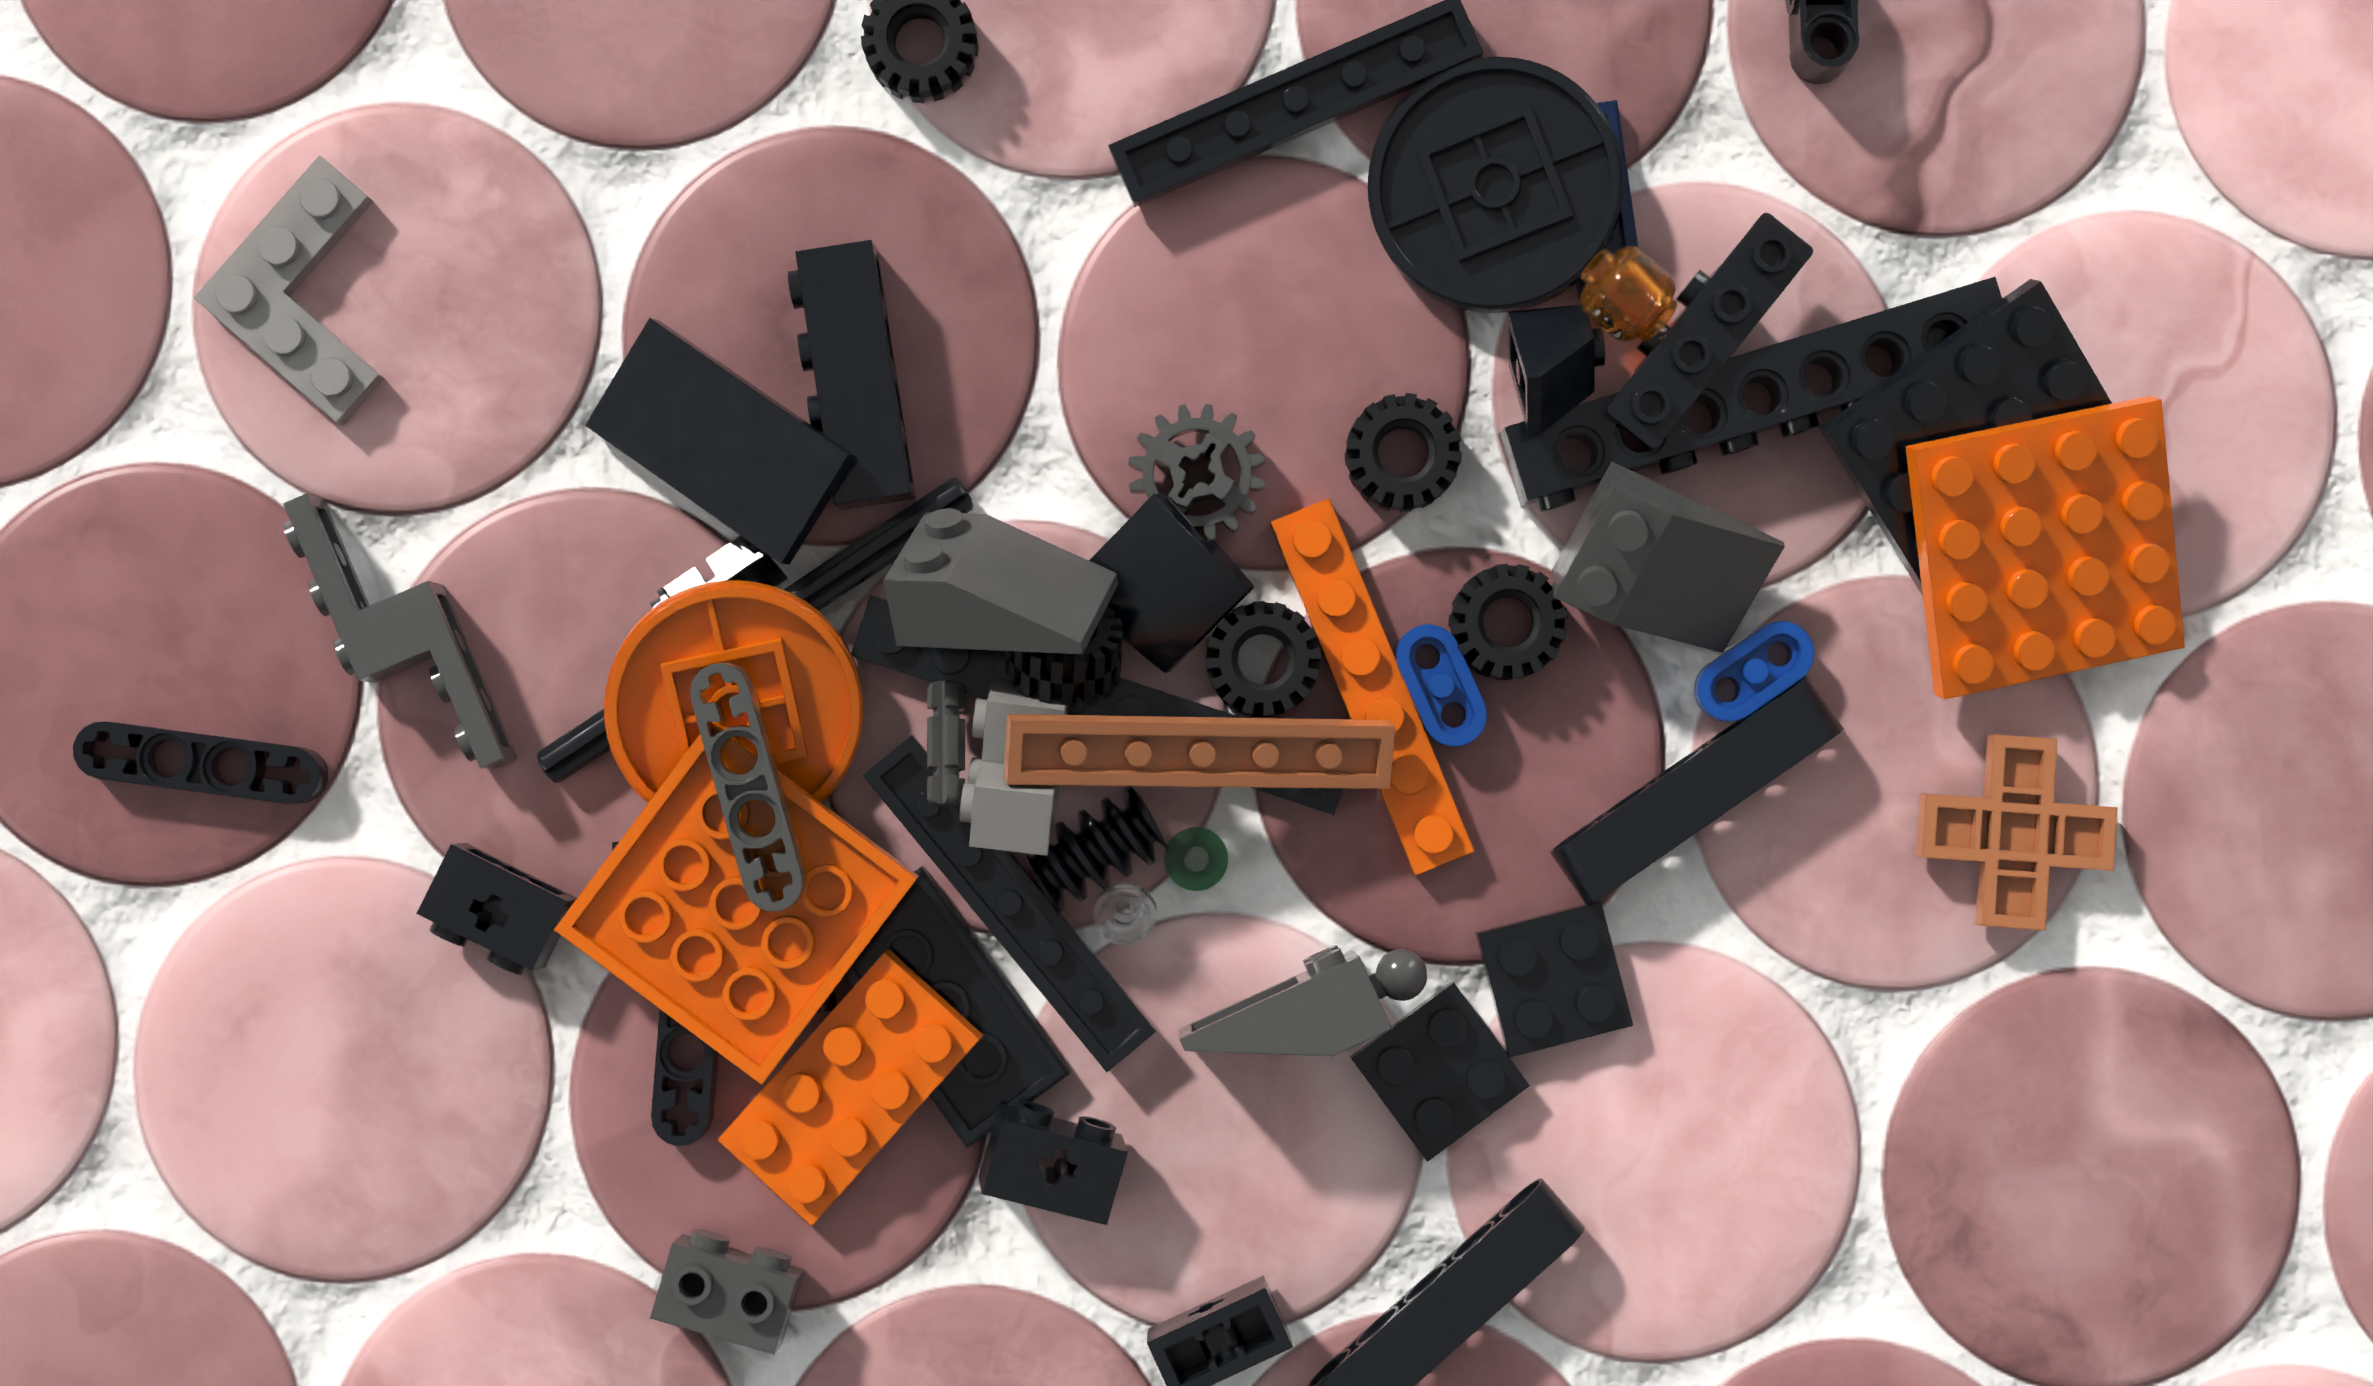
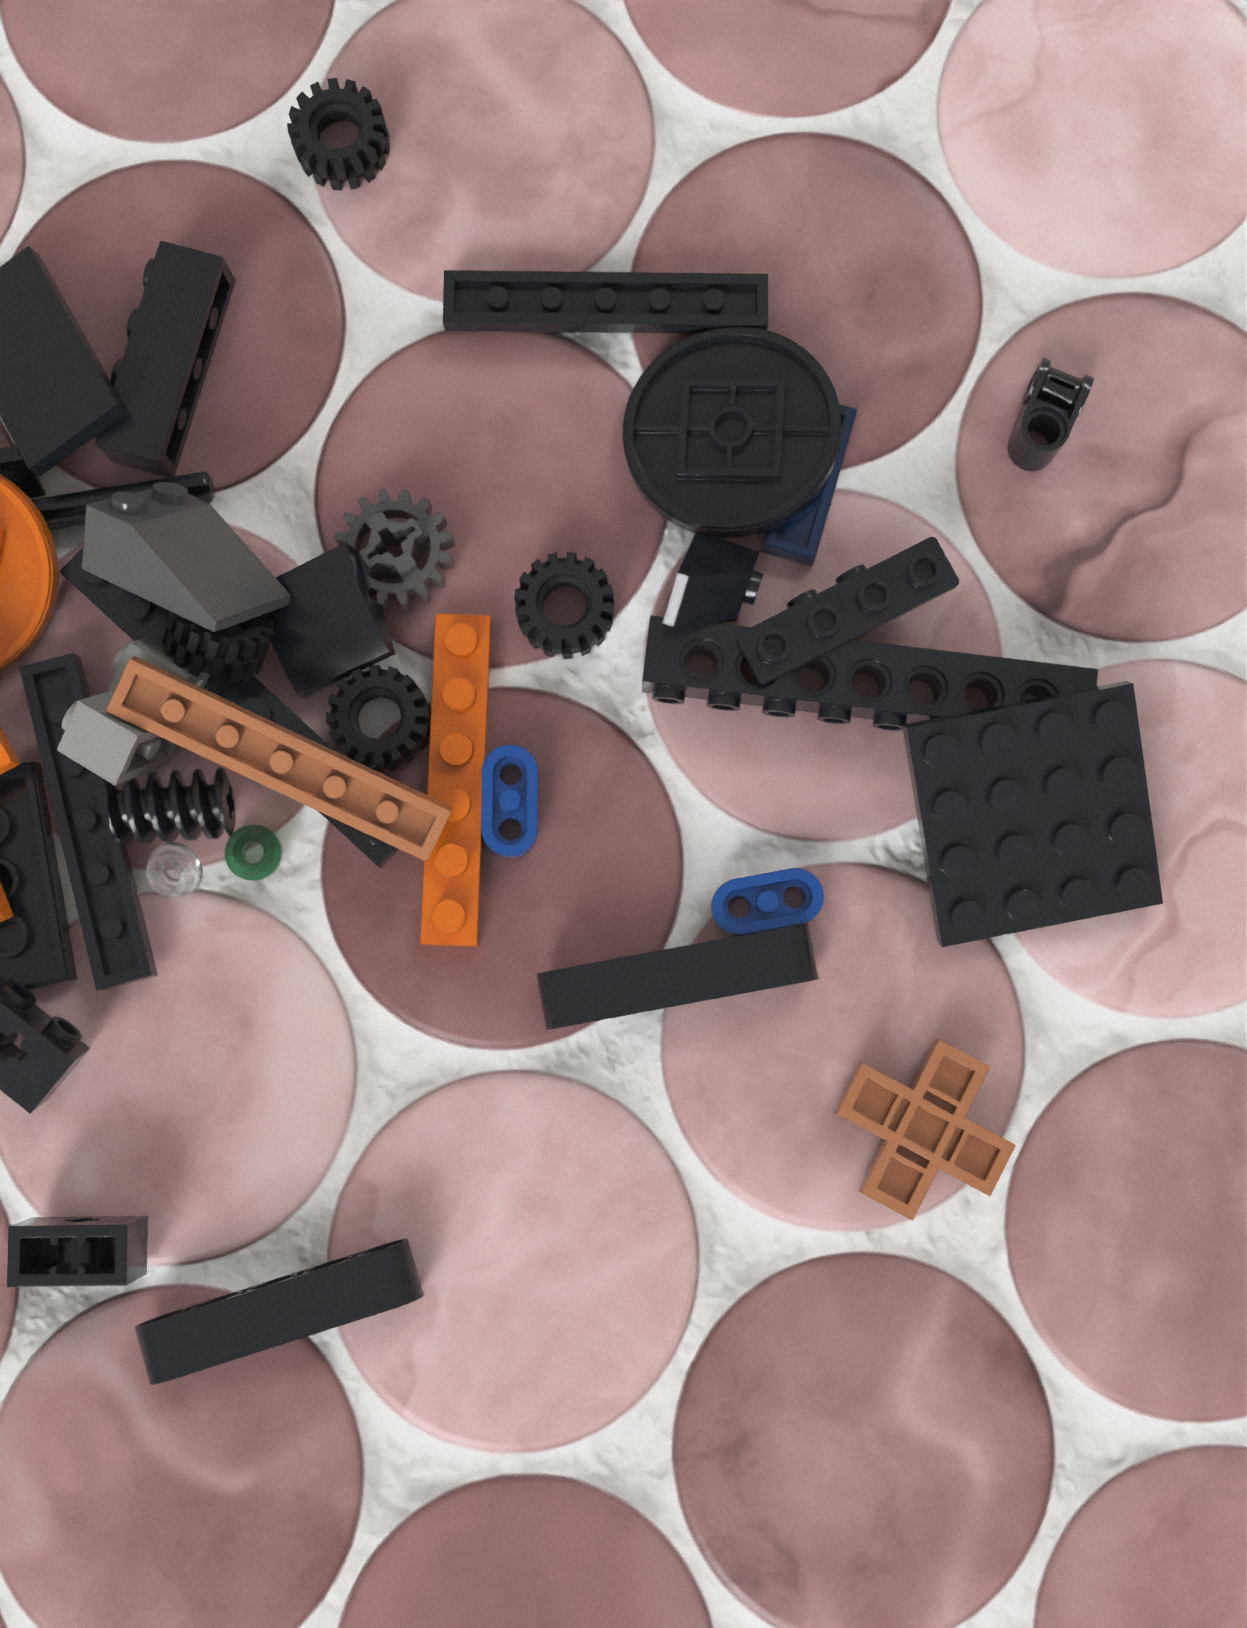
camera: 25 degrees right, 5 degrees down
(945, 743) = (95, 664): dark grey axle -> none
(1315, 1011) = (281, 1017): dark grey slope -> none
(1439, 1071) = (367, 1113): black plate -> none
(1546, 614) = (580, 741): black tyre -> none
(1554, 979) = (494, 1079): black plate -> none
(1628, 293) = (796, 554): clear orange head -> none
(1662, 562) = (730, 780): dark grey slope -> none
(2046, 546) = (1047, 903): orange plate -> none

